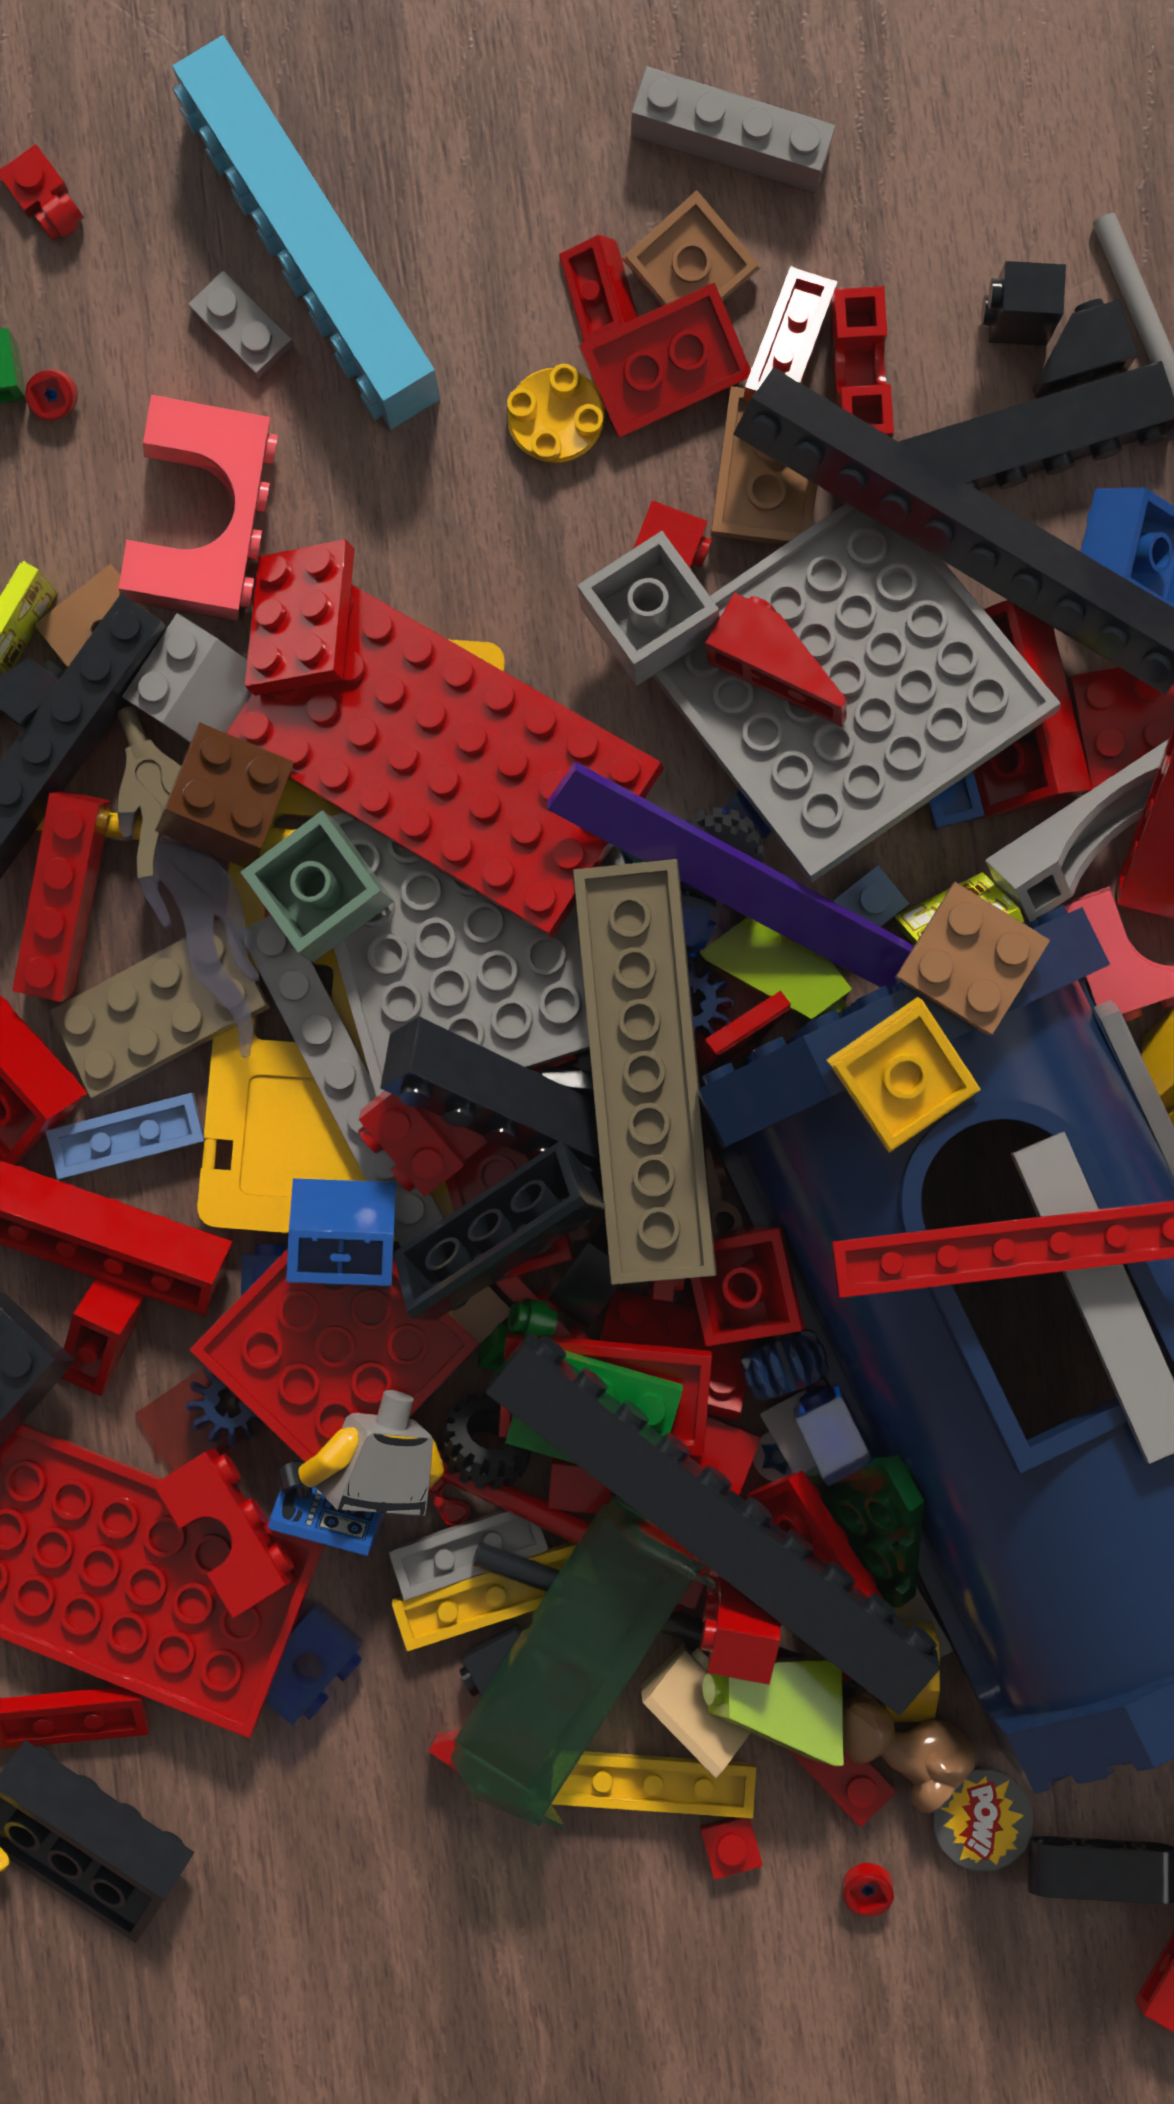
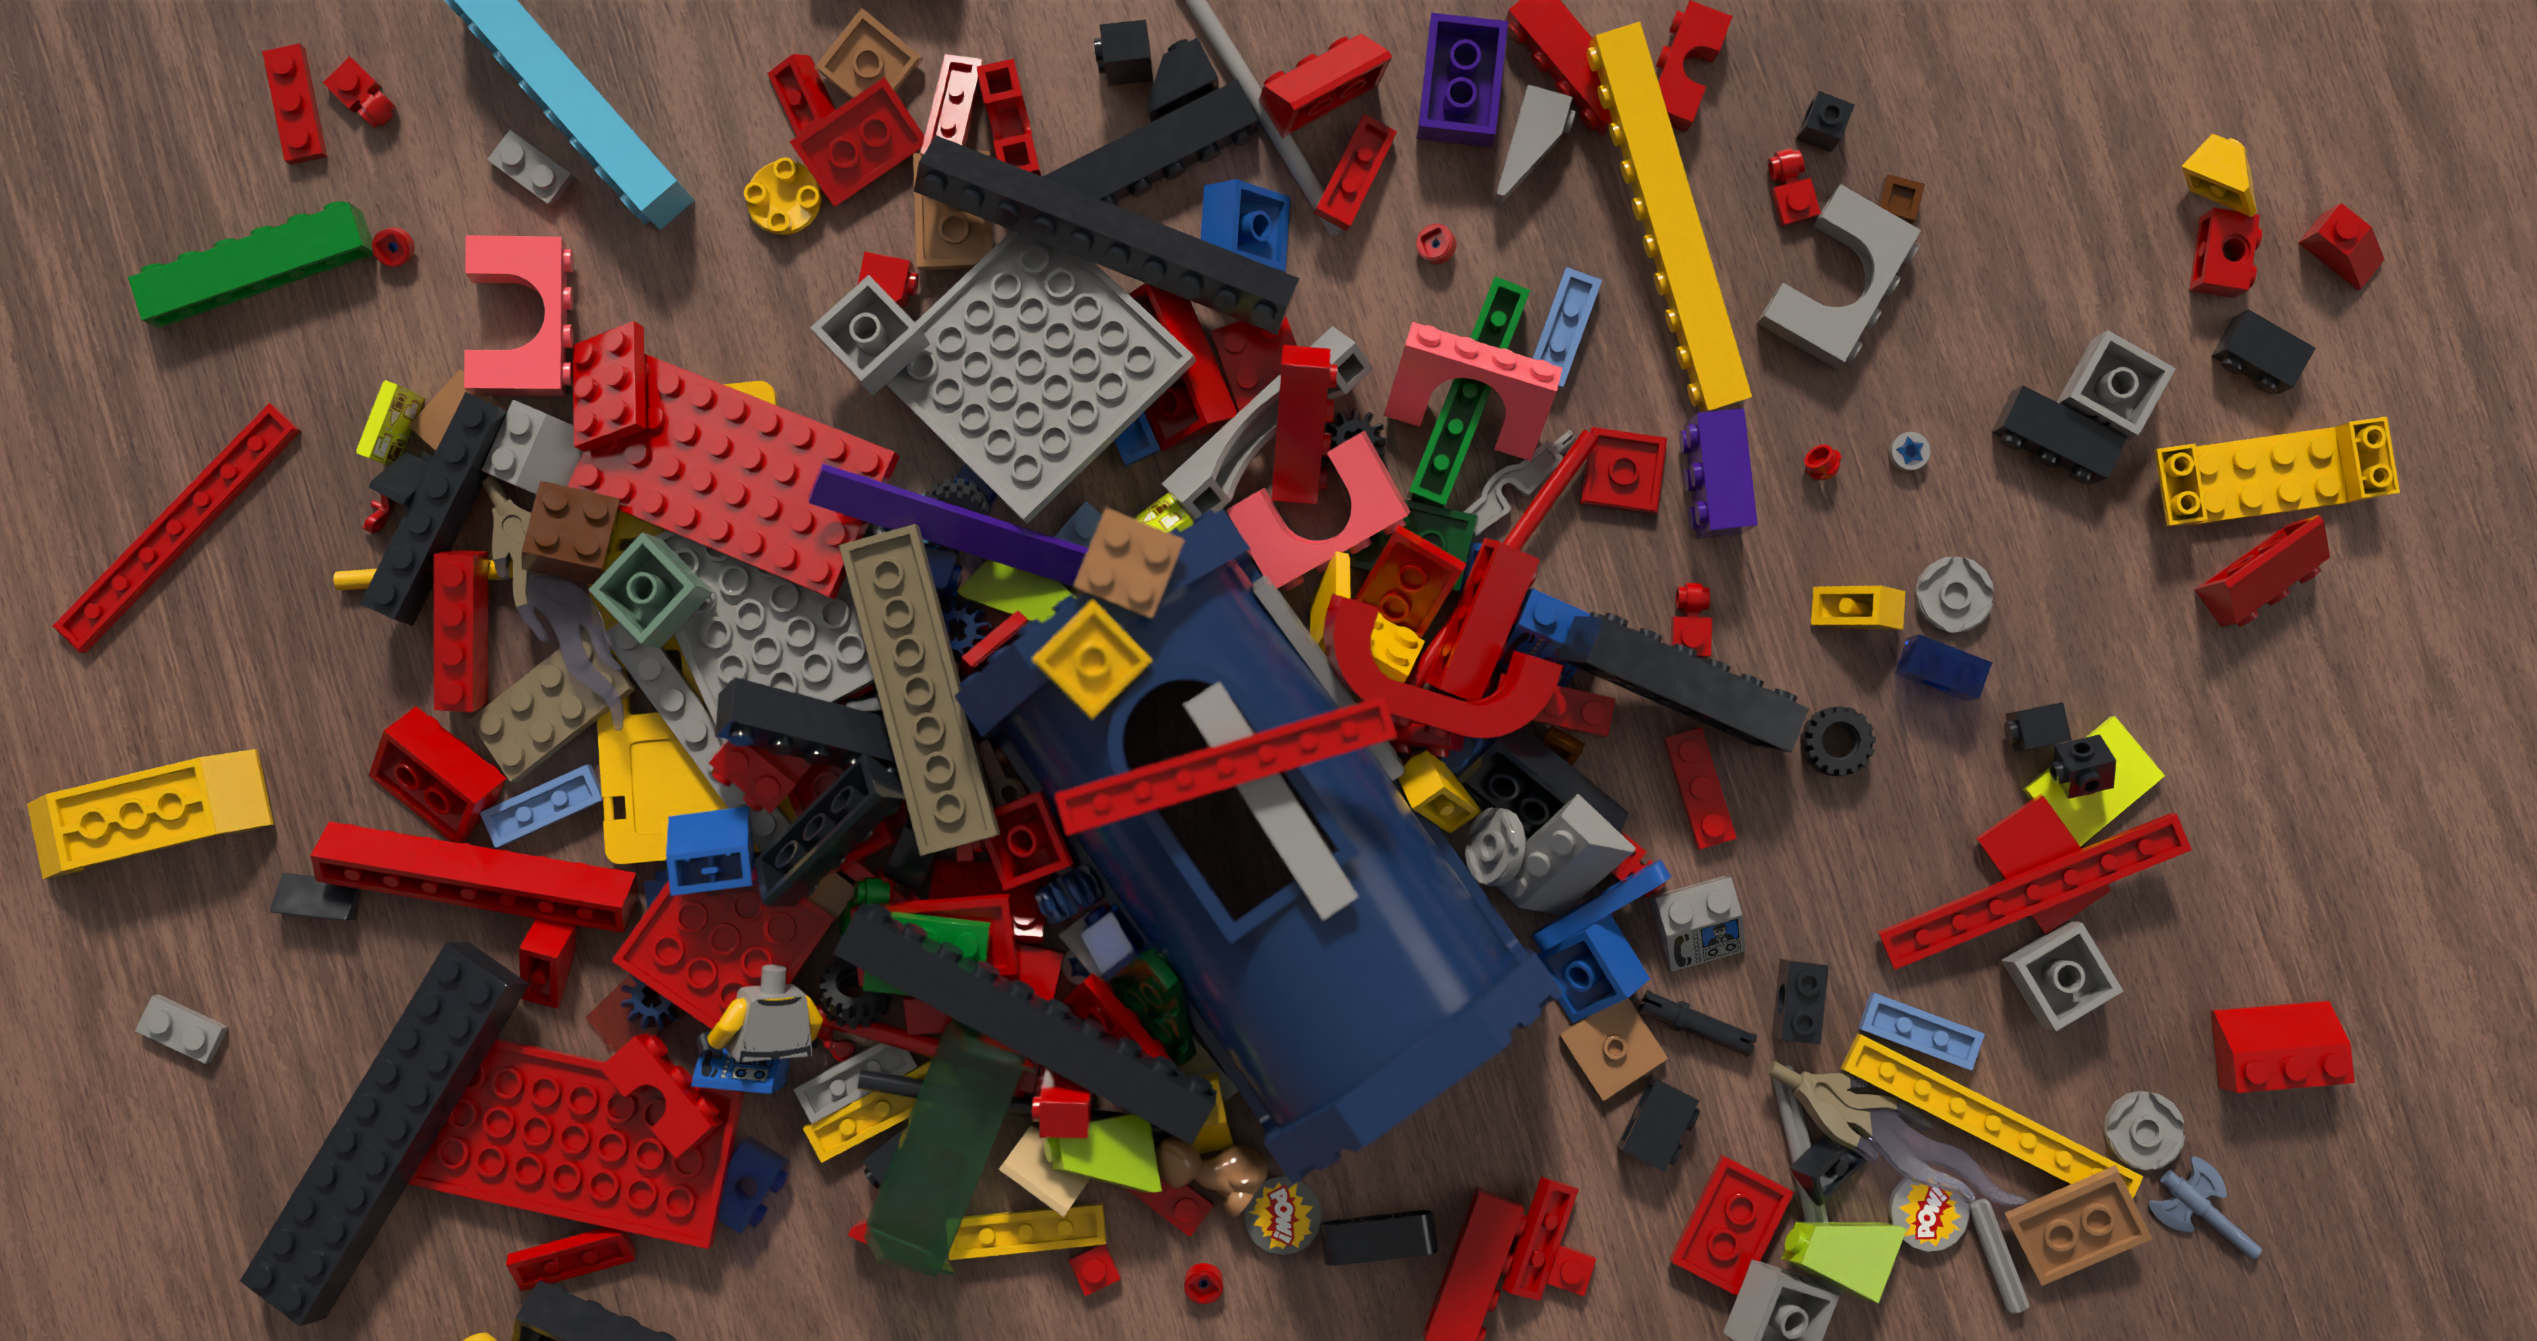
camera: 10 degrees left, 0 degrees up
(764, 651) = (961, 353): red slope -> none

